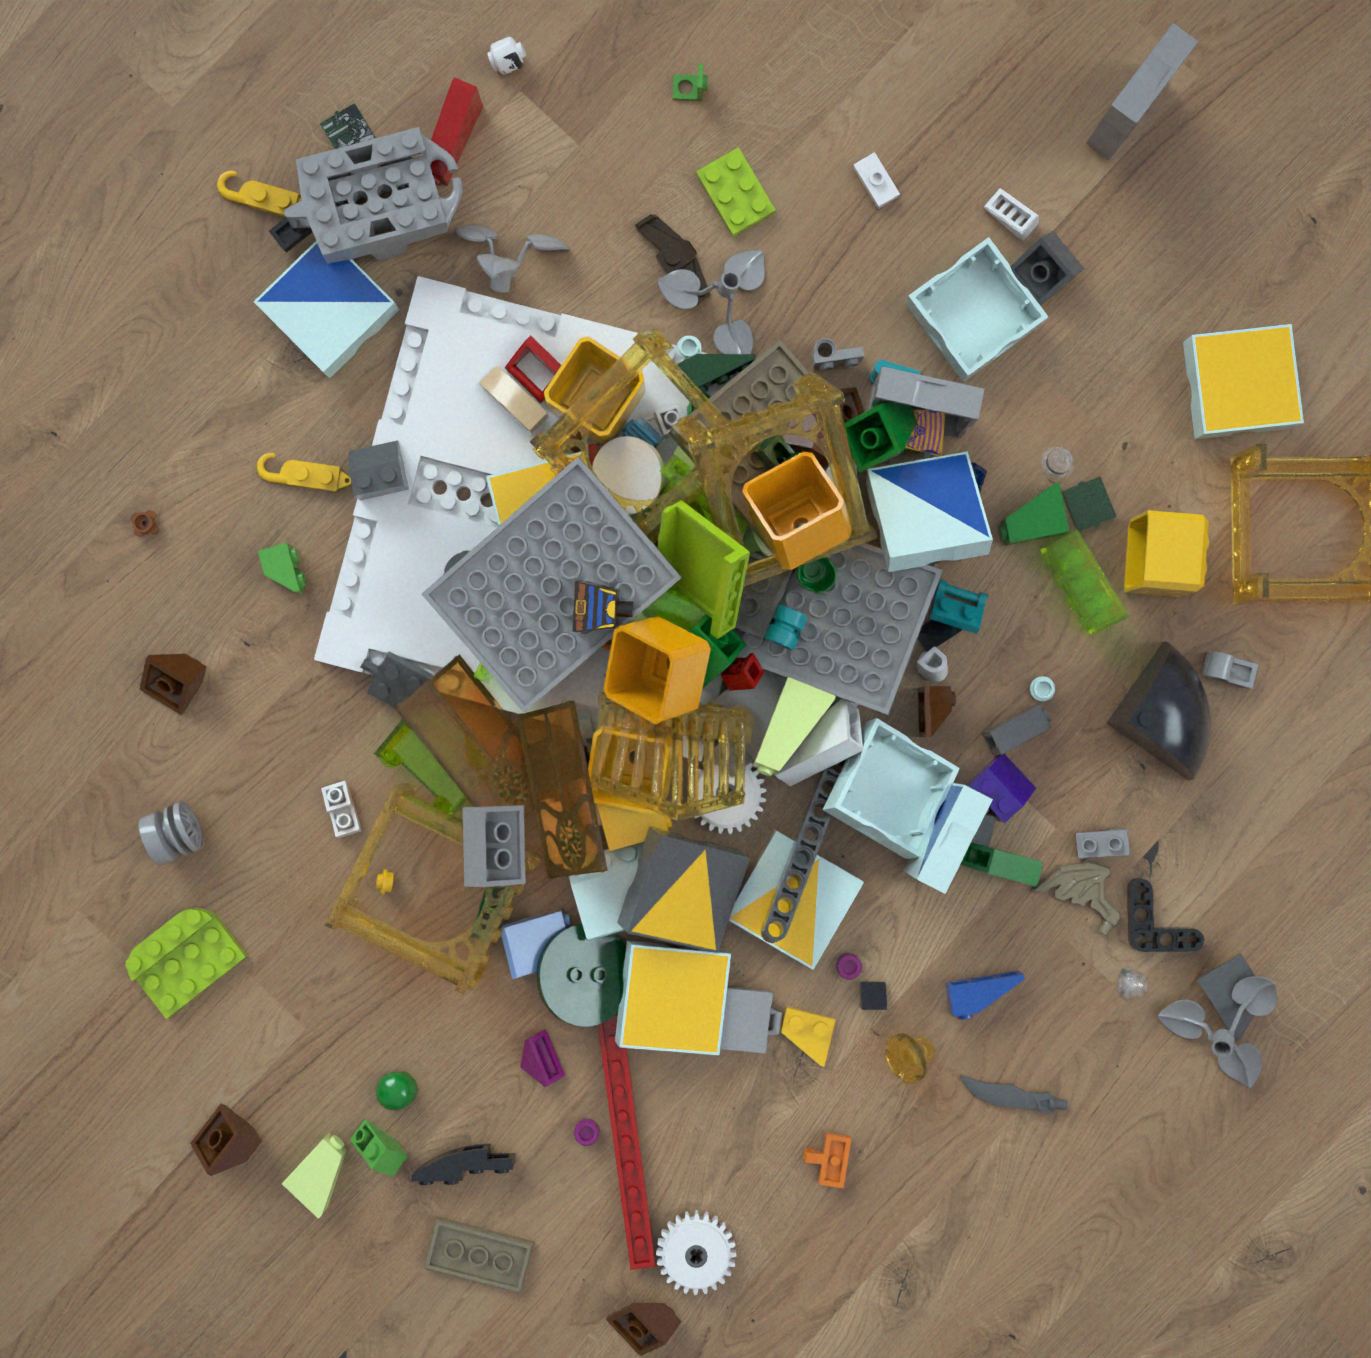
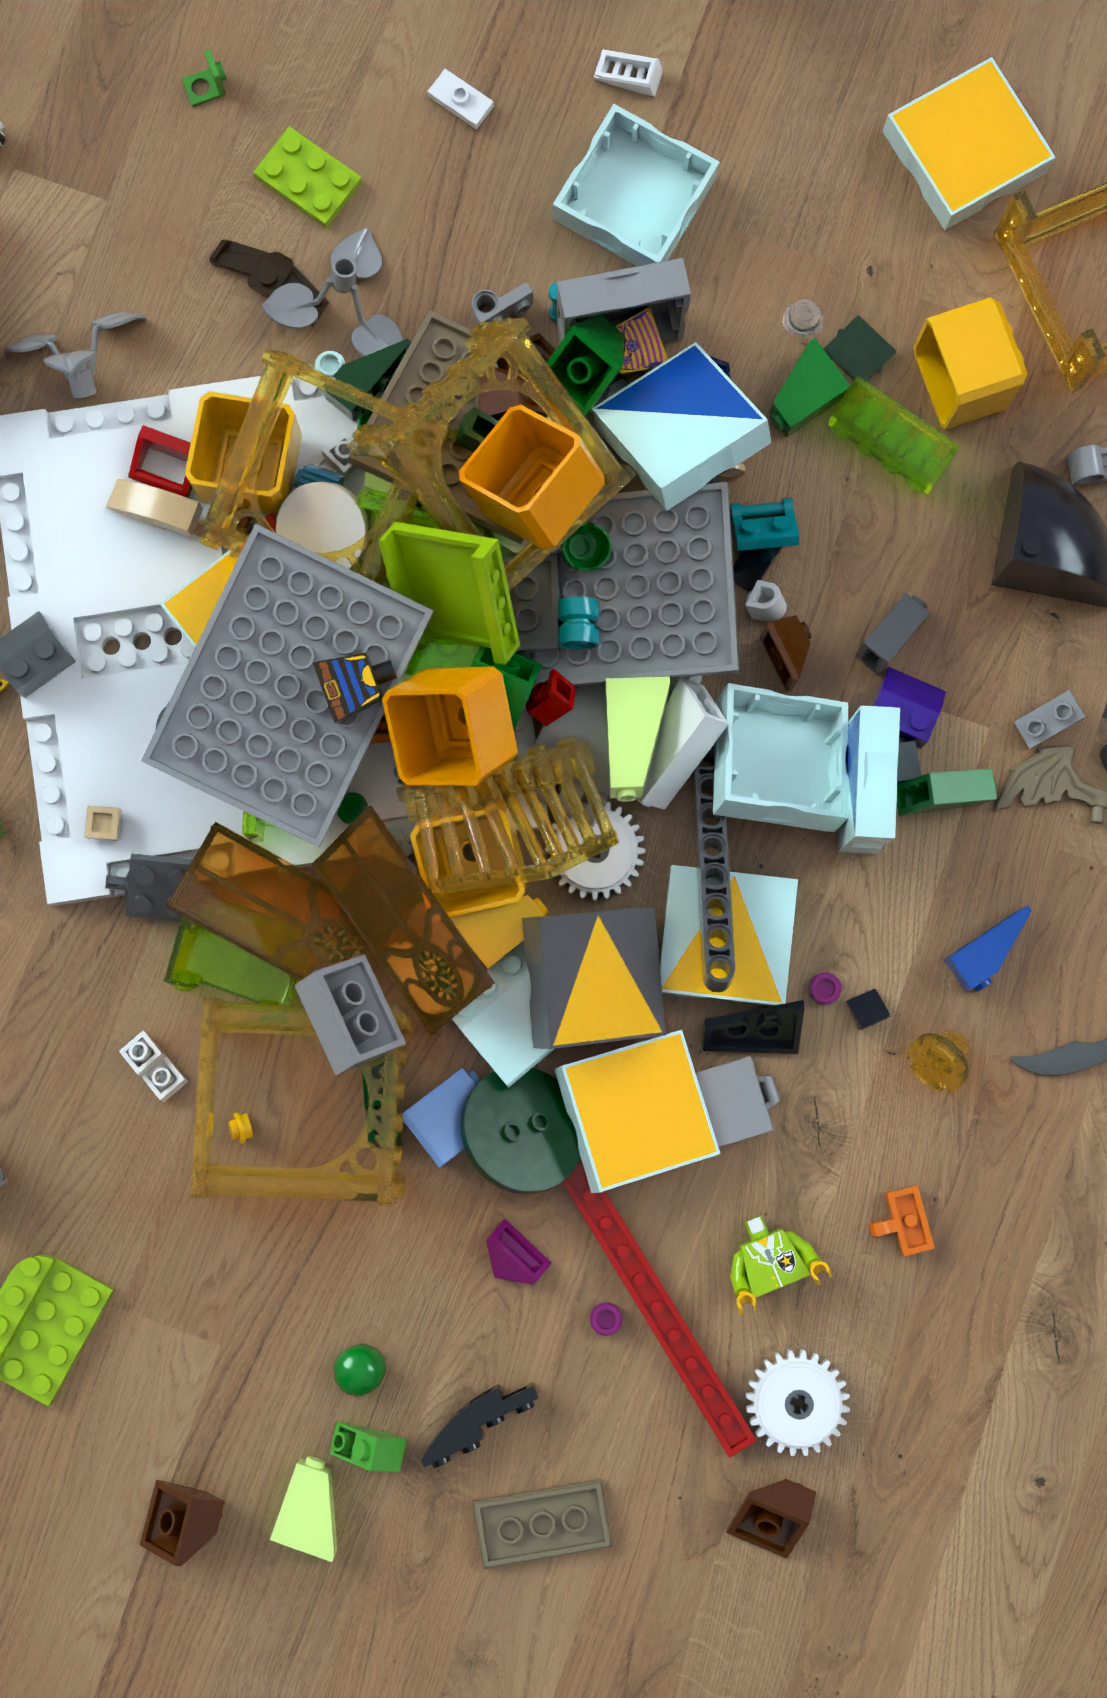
camera: 30 degrees left, 5 degrees down
(378, 619) = (103, 823): none -> tan plate
(565, 689) = (351, 807): none -> green tile
(721, 1146) = (771, 1262): none -> lime torso
(787, 977) = (757, 1030): none -> black wing
(809, 1032) = (813, 1085): yellow wing -> none
(1042, 688) = (901, 576): light aqua plate -> none
(1046, 267) = (694, 111): dark grey slope -> none

